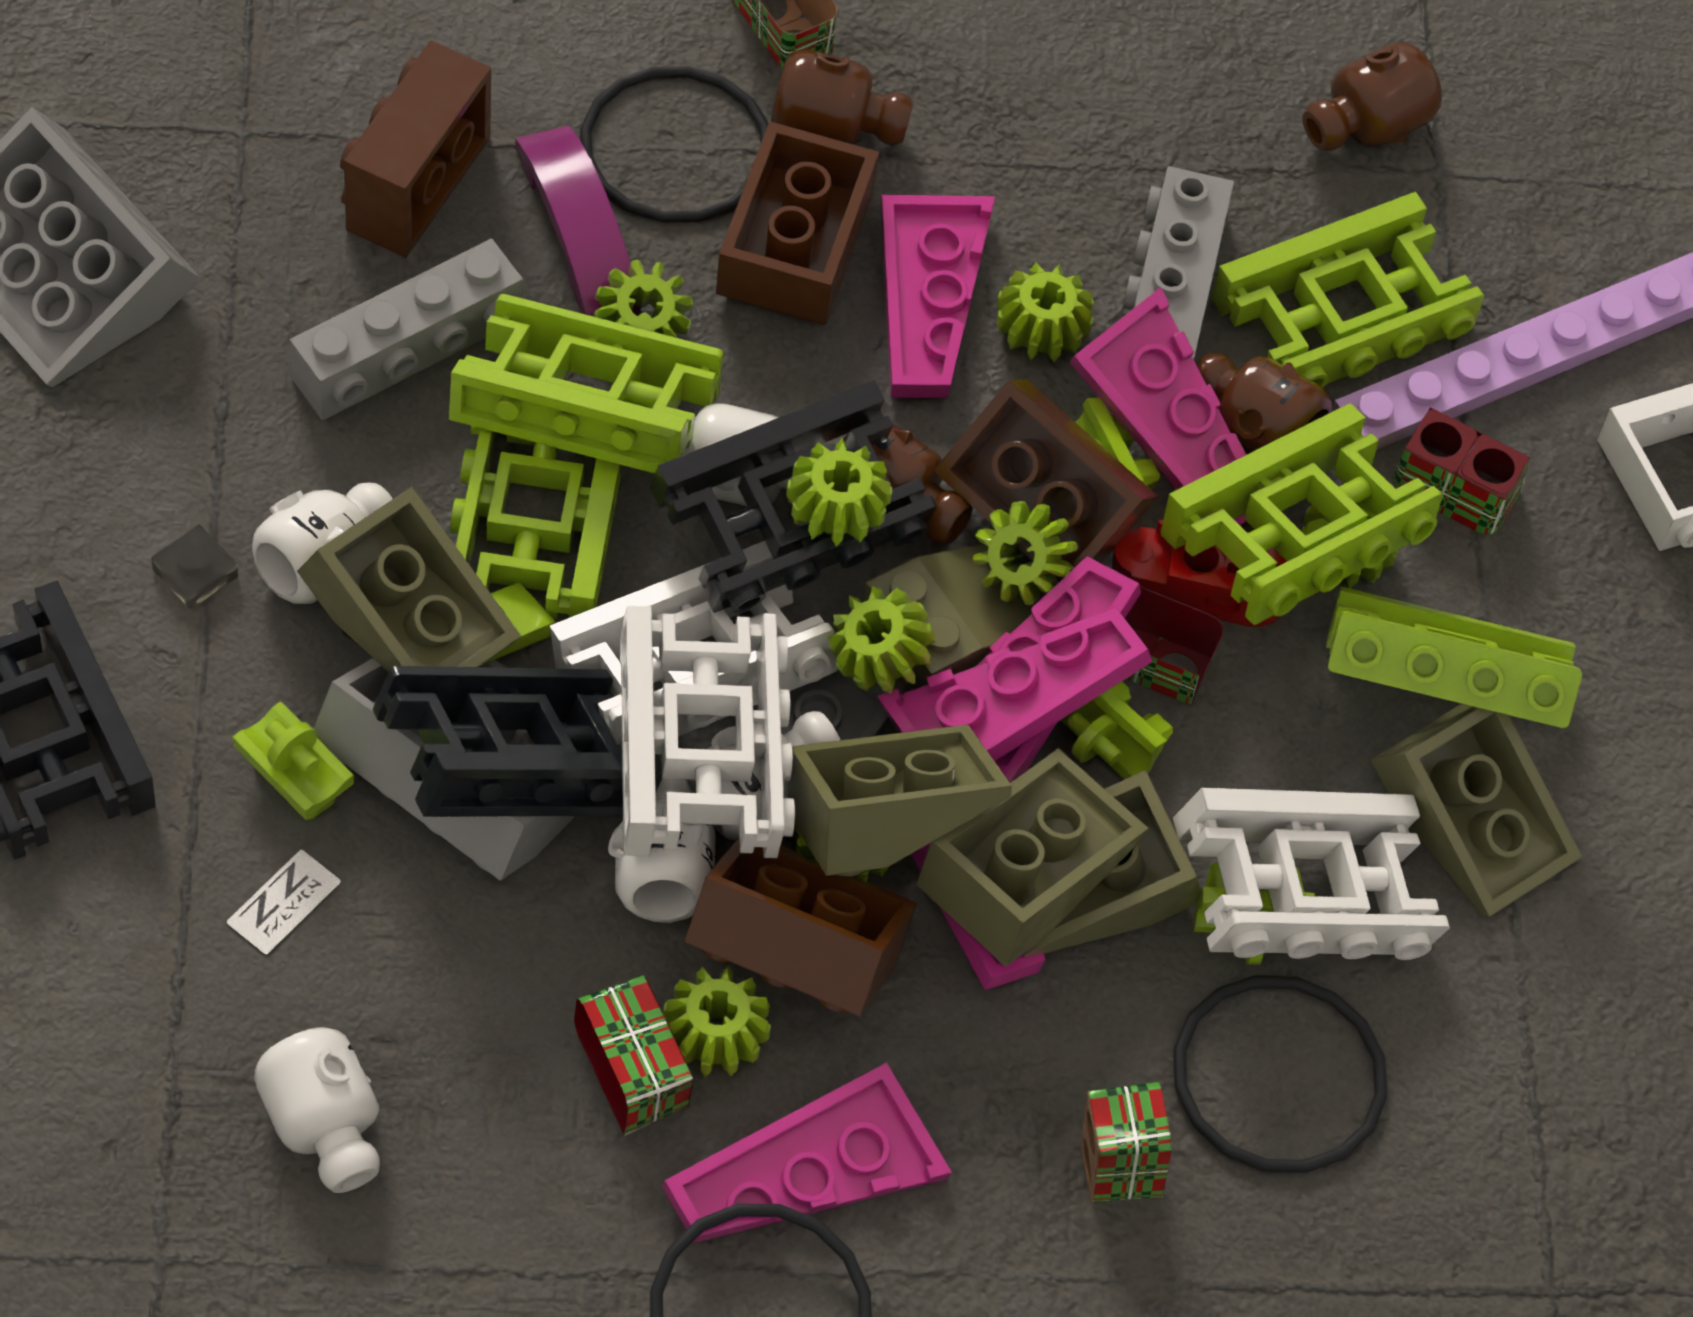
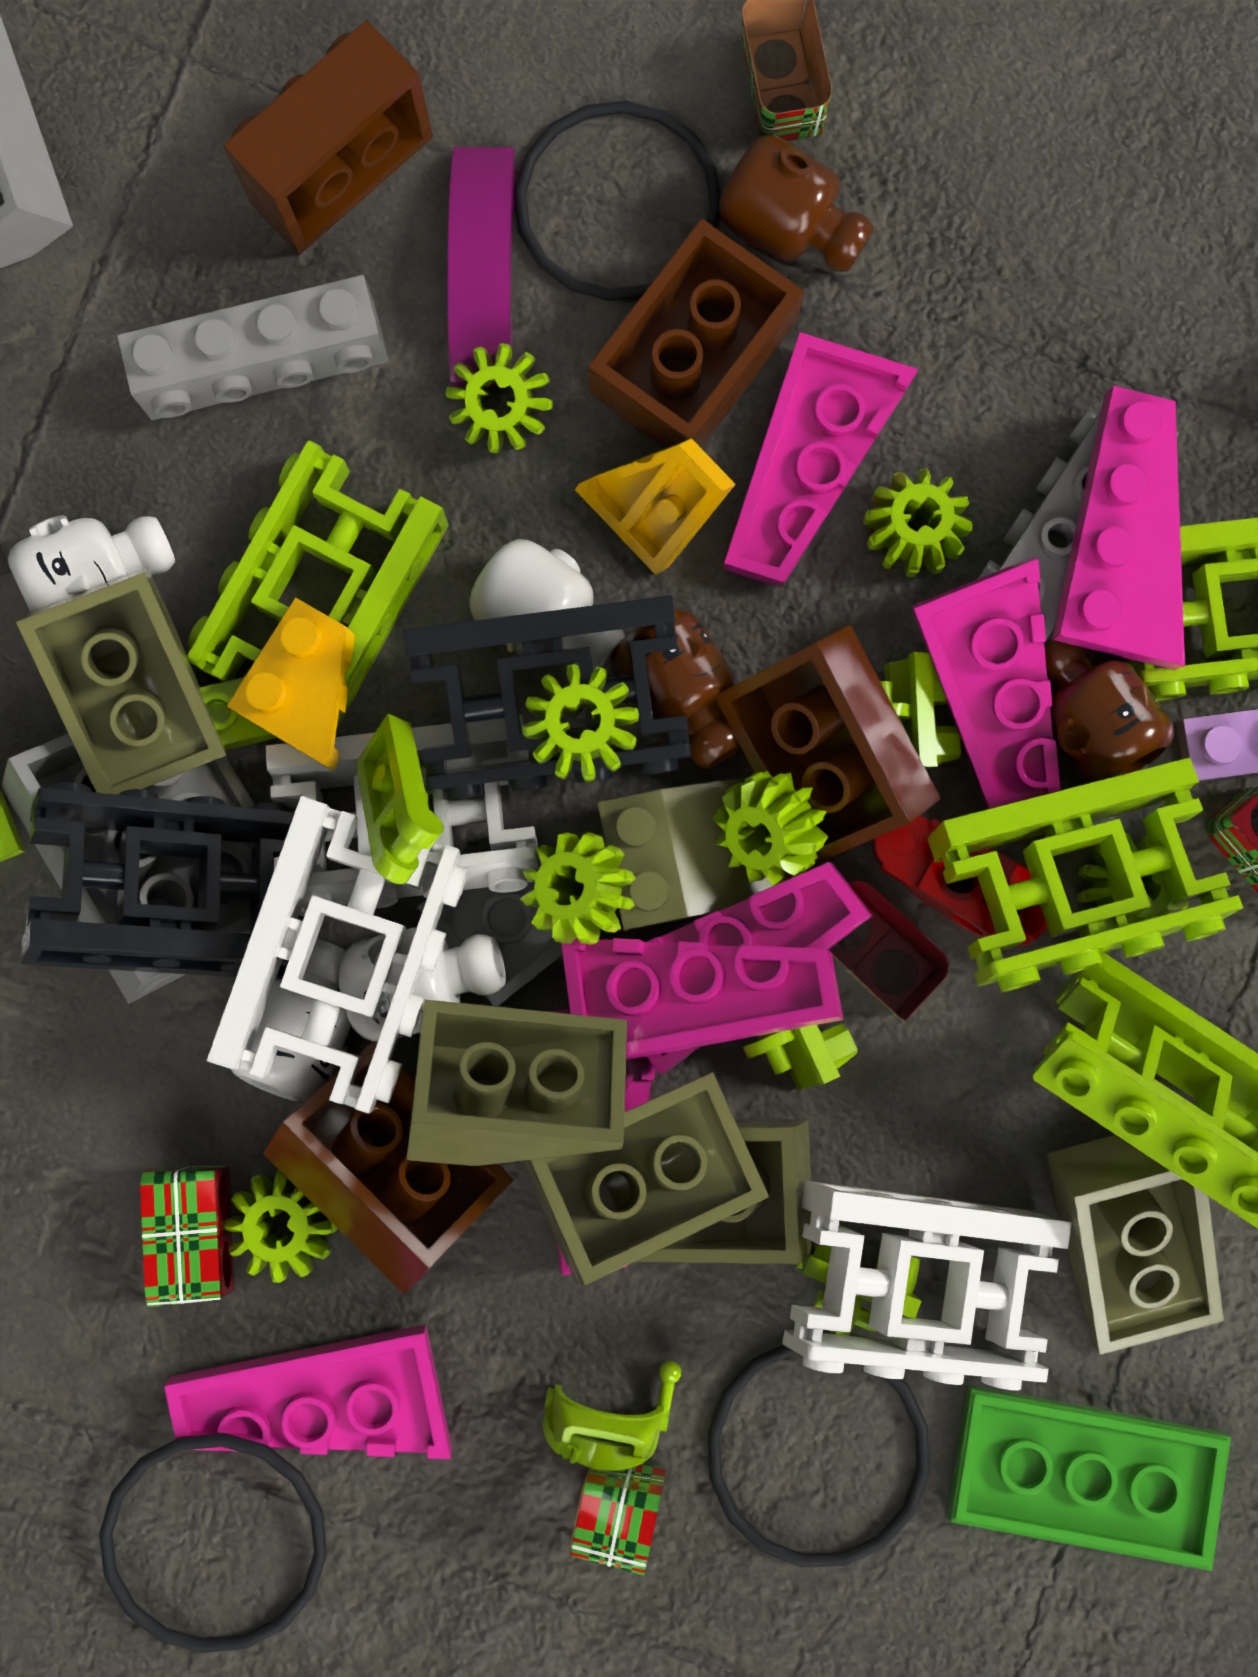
camera: 30 degrees right, 25 degrees up
(531, 401) = (368, 520): lime fence -> none
(563, 565) = (300, 682): none -> yellow wing
(701, 598) = (395, 801): none -> lime plate
(816, 347) = (658, 500): none -> yellow wing
(1041, 1091) = (568, 1422): none -> lime helmet
(1227, 268) = (1127, 545): none -> dark pink wing
(1523, 1017) = (1089, 1477): none -> bright green tile

